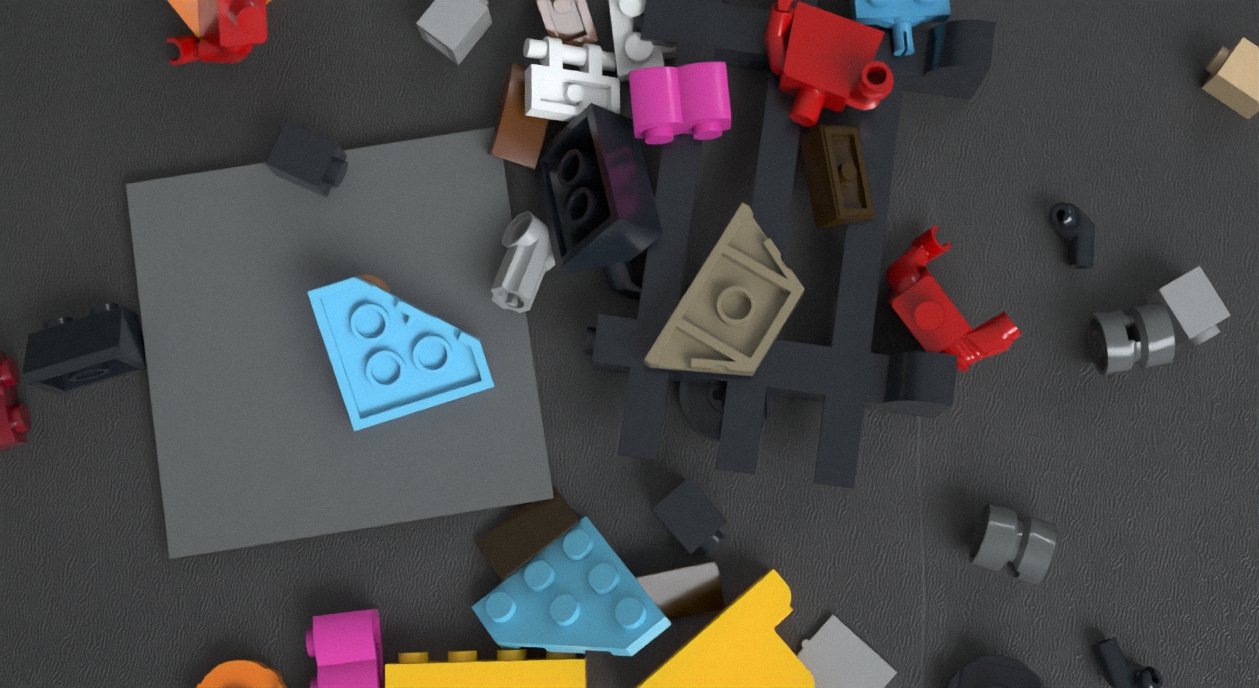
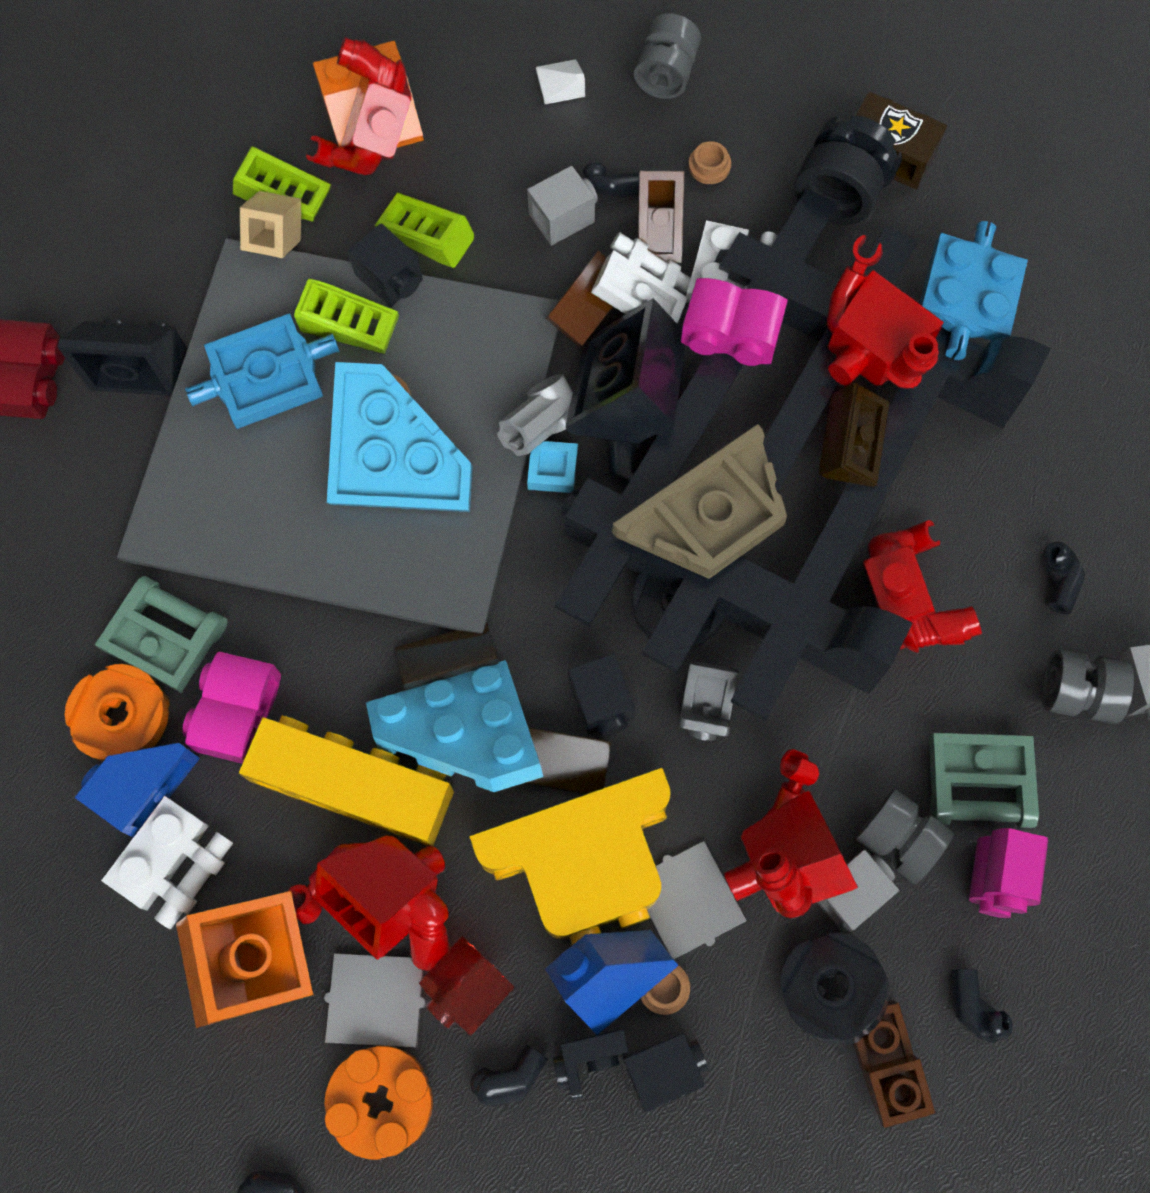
camera: 20 degrees right, 10 degrees down
(140, 86) = (273, 169): none -> lime slope
(168, 155) = (270, 224): none -> tan brick
(230, 317) = (262, 371): none -> dark azure plate
(243, 632) = (154, 647): none -> sand green plate
(268, 212) = (332, 298): none -> lime slope
(353, 103) = (445, 246): none -> lime slope
(556, 306) = (553, 467): none -> medium azure plate
(790, 484) = (707, 700): none -> bracket
(917, 598) = (792, 848): none -> red torso
(986, 610) = (873, 891): none -> light grey brick
(1060, 445) = (983, 762): none -> sand green plate
(1116, 547) = (1008, 872): none -> dark pink brick

